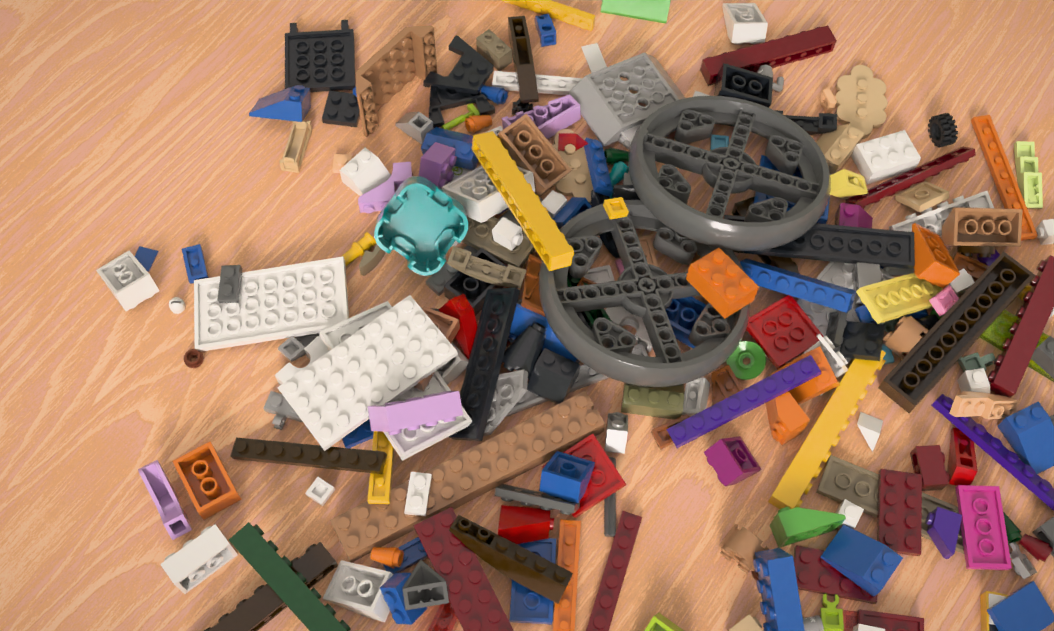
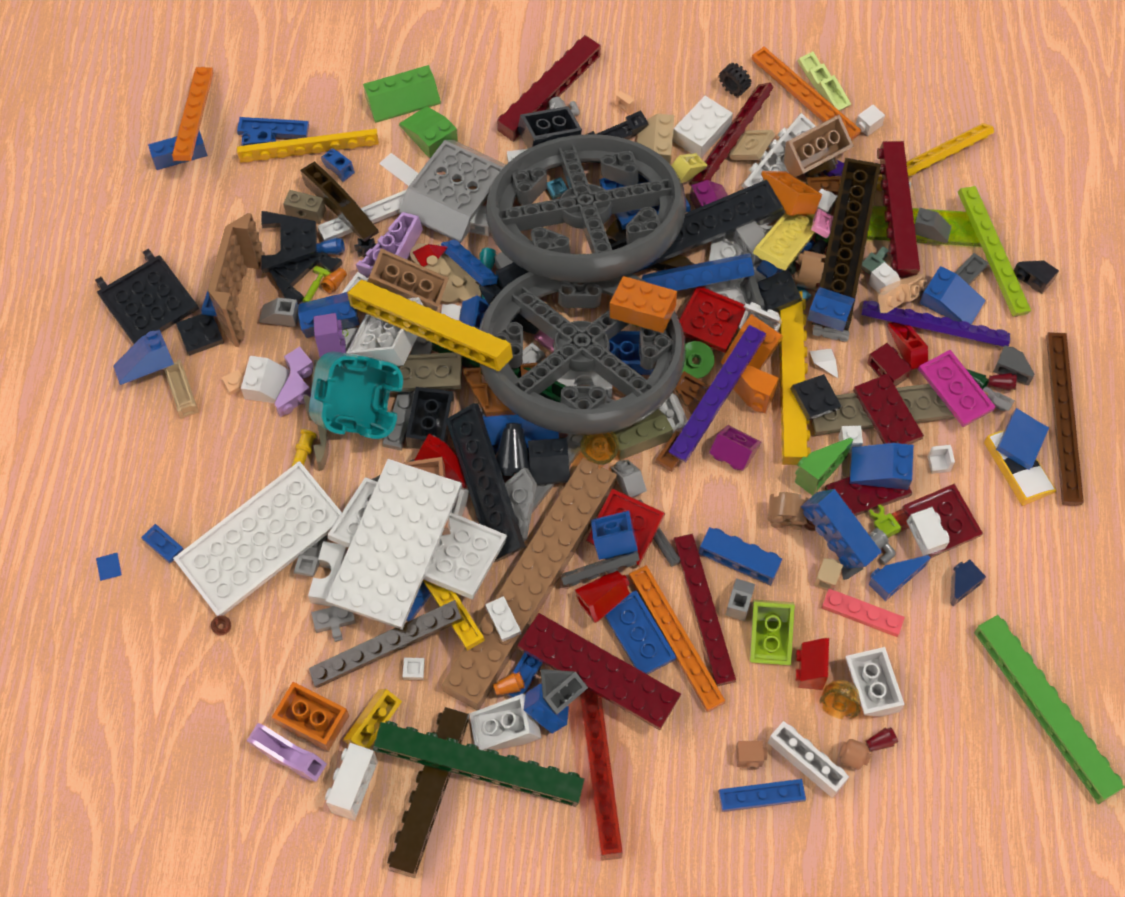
camera: 30 degrees left, 0 degrees up
(128, 280) = (110, 592): white slope -> none
(177, 307) = (173, 591): white hinge -> none
(229, 284) = (211, 542): dark grey plate -> none
(257, 513) = (367, 725): none -> yellow brick
(415, 412) = (459, 552): lavender wedge -> none
(485, 270) = (436, 403): dark tan slope -> none
(507, 234) = (433, 362): white brick -> none
(513, 560) = (617, 624): dark brown slope -> none
(598, 383) = (606, 444): none -> clear yellow cylinder
(615, 155) = (475, 245): dark green cone -> none
(615, 208) = (515, 289): yellow plate -> none
(640, 37) = (429, 130): none -> bright green slope
(646, 604) = (740, 599): none -> light grey slope
(672, 564) = (740, 555): none -> blue brick
(744, 23) = (510, 68): white slope -> none
(837, 457) = (815, 397): none -> black plate
(861, 100) = (651, 87): tan plate -> none
(891, 406) = (831, 333): none -> light grey axle
(901, 383) = (830, 309): none -> blue slope
(925, 586) = (941, 459): none -> white panel
(944, 530) = (929, 407): dark purple slope -> none

